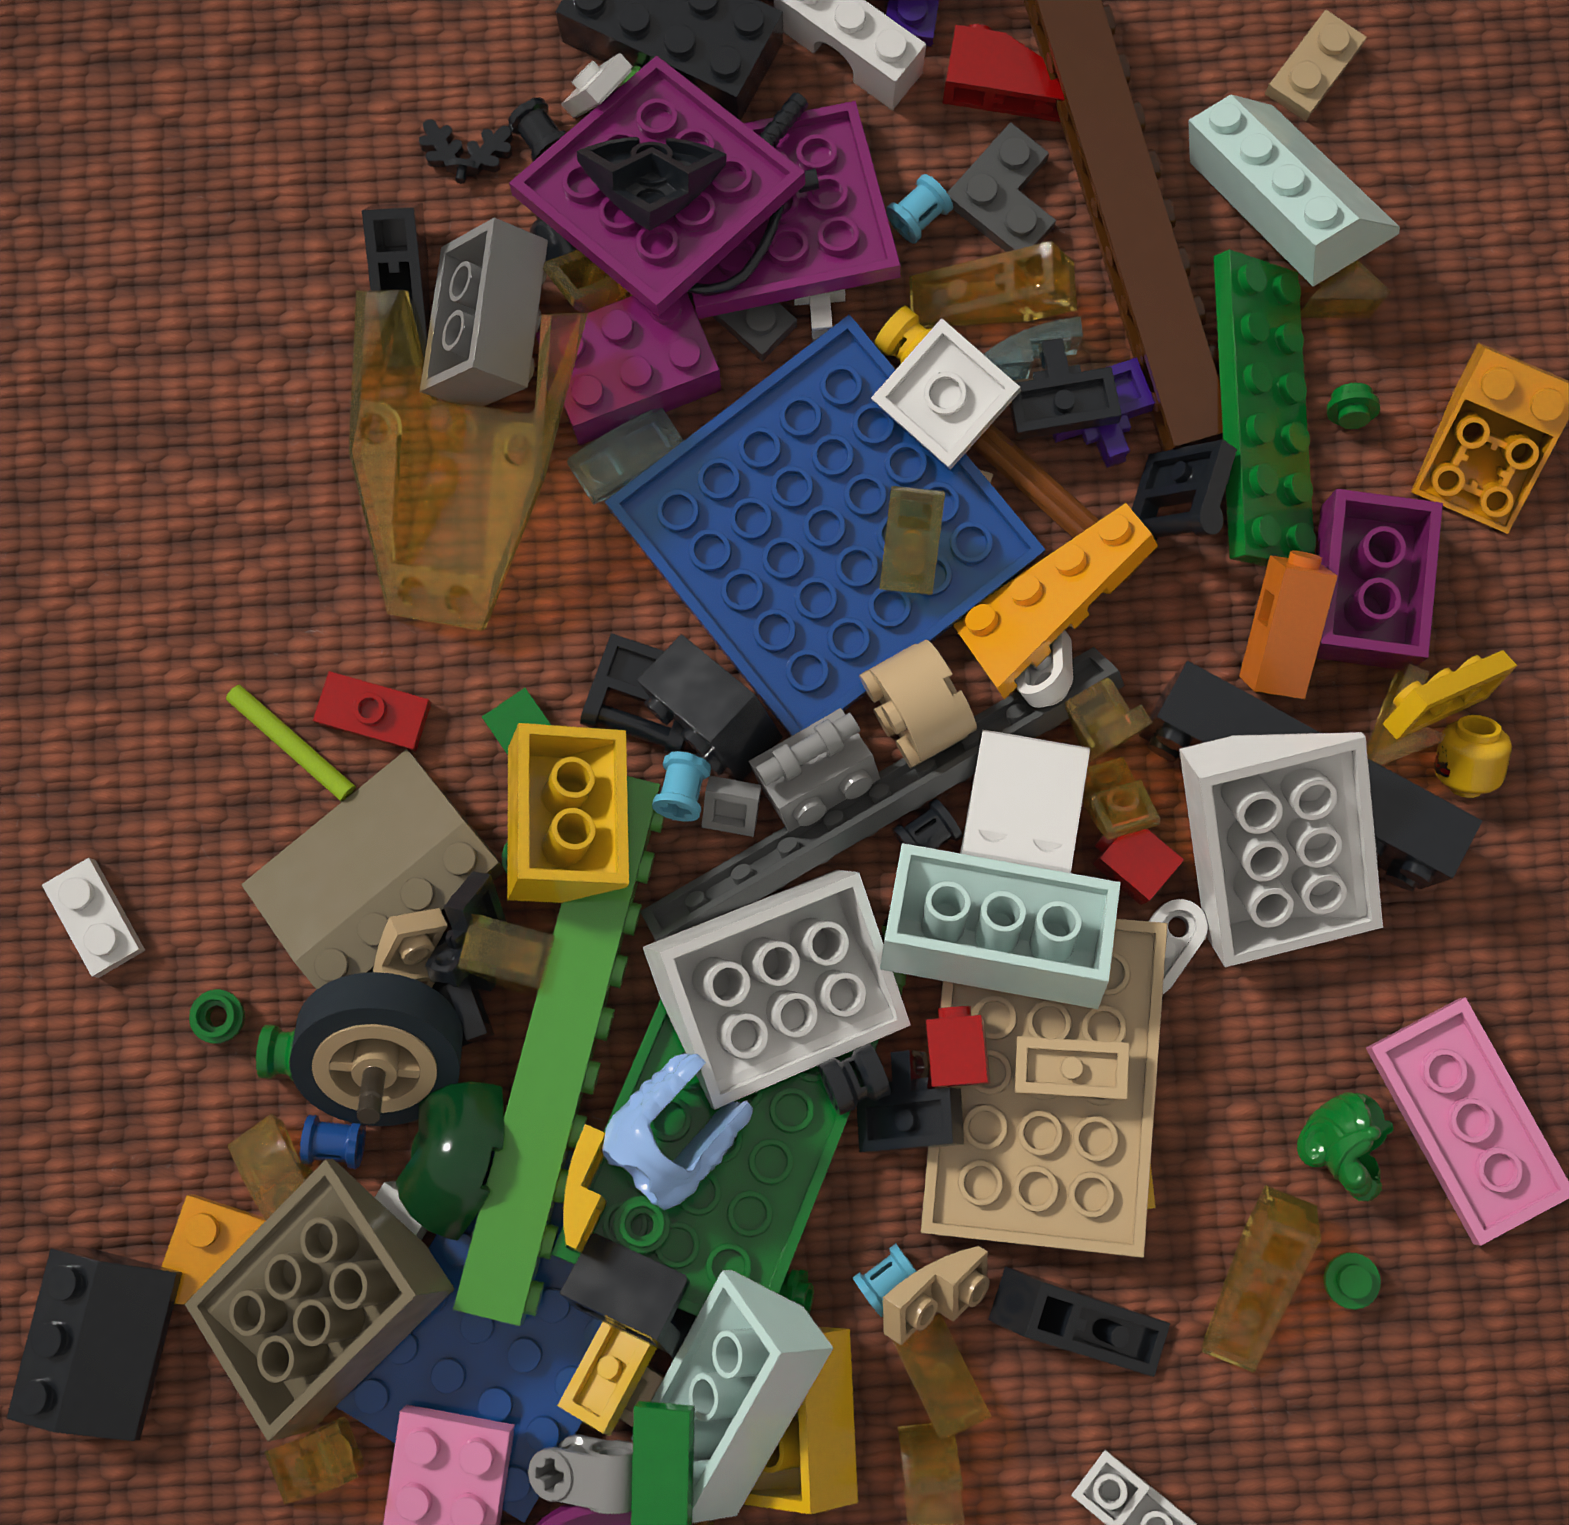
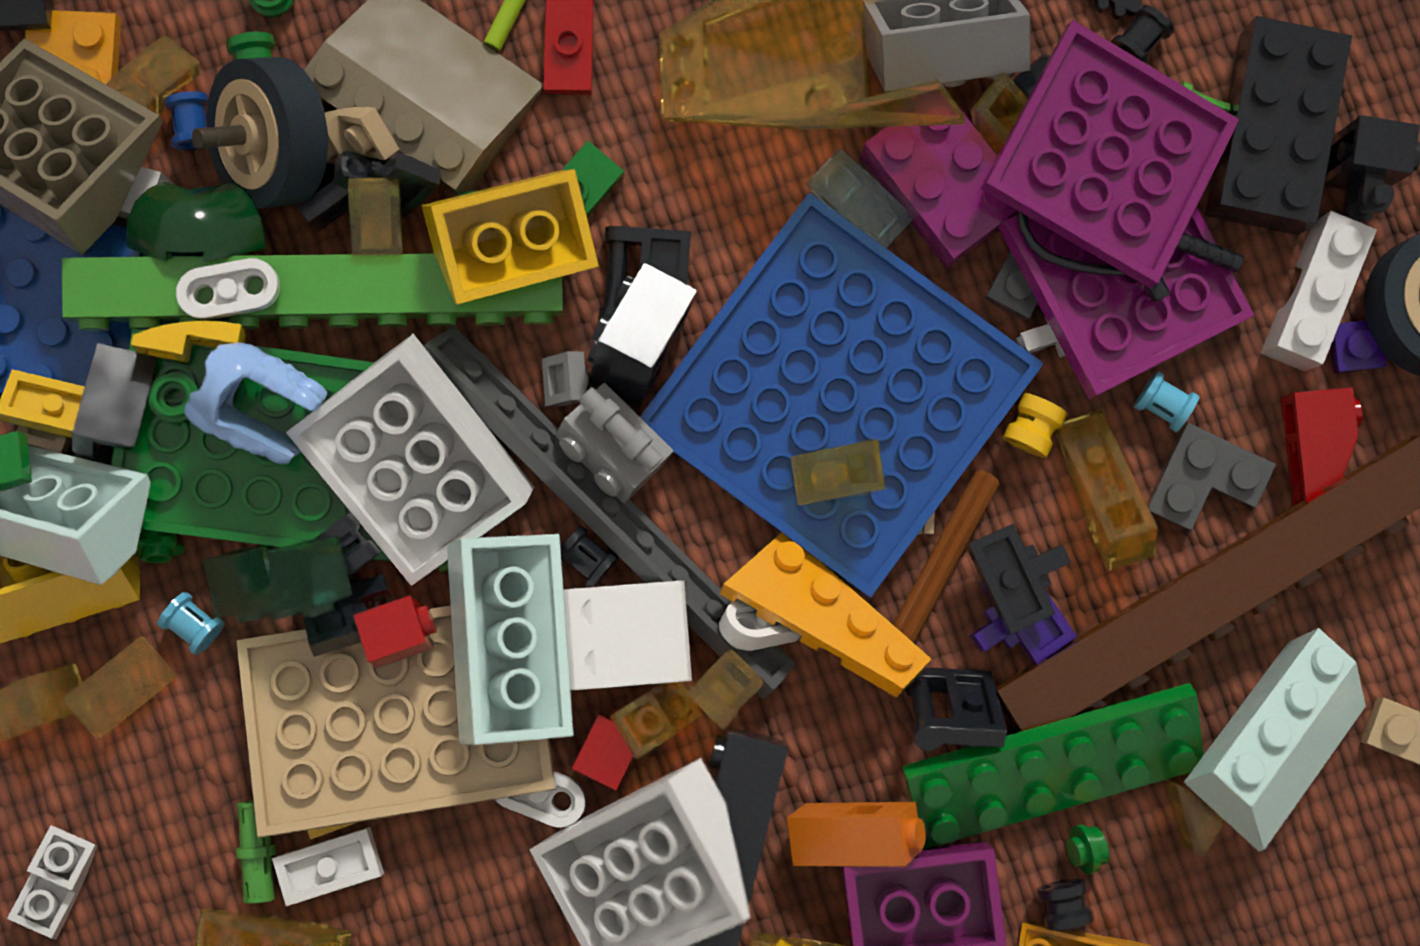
camera: 75 degrees right, 5 degrees up
(541, 1130) = (229, 288): none -> white plate
(596, 84) = (1197, 73): white plate -> none
(651, 178) = (1111, 146): black brick -> none
(681, 786) = (563, 329): medium azure bush -> none
(867, 1199) = (279, 580): none -> clear green arch
(919, 702) = (694, 517): tan brick -> none
(941, 1286) = (196, 673): tan slope -> none
(946, 393) = (986, 469): white plate -> none
(1018, 351) = (1047, 524): clear light blue slope -> none
(1072, 1067) = (402, 734): tan plate -> none
(1078, 1322) = (194, 794): black slope -> none
(1156, 1273) = (255, 857): none -> bright green pin
(1189, 1195) = (328, 866): none -> white plate
(1404, 442) = (1065, 904): none -> black wheel

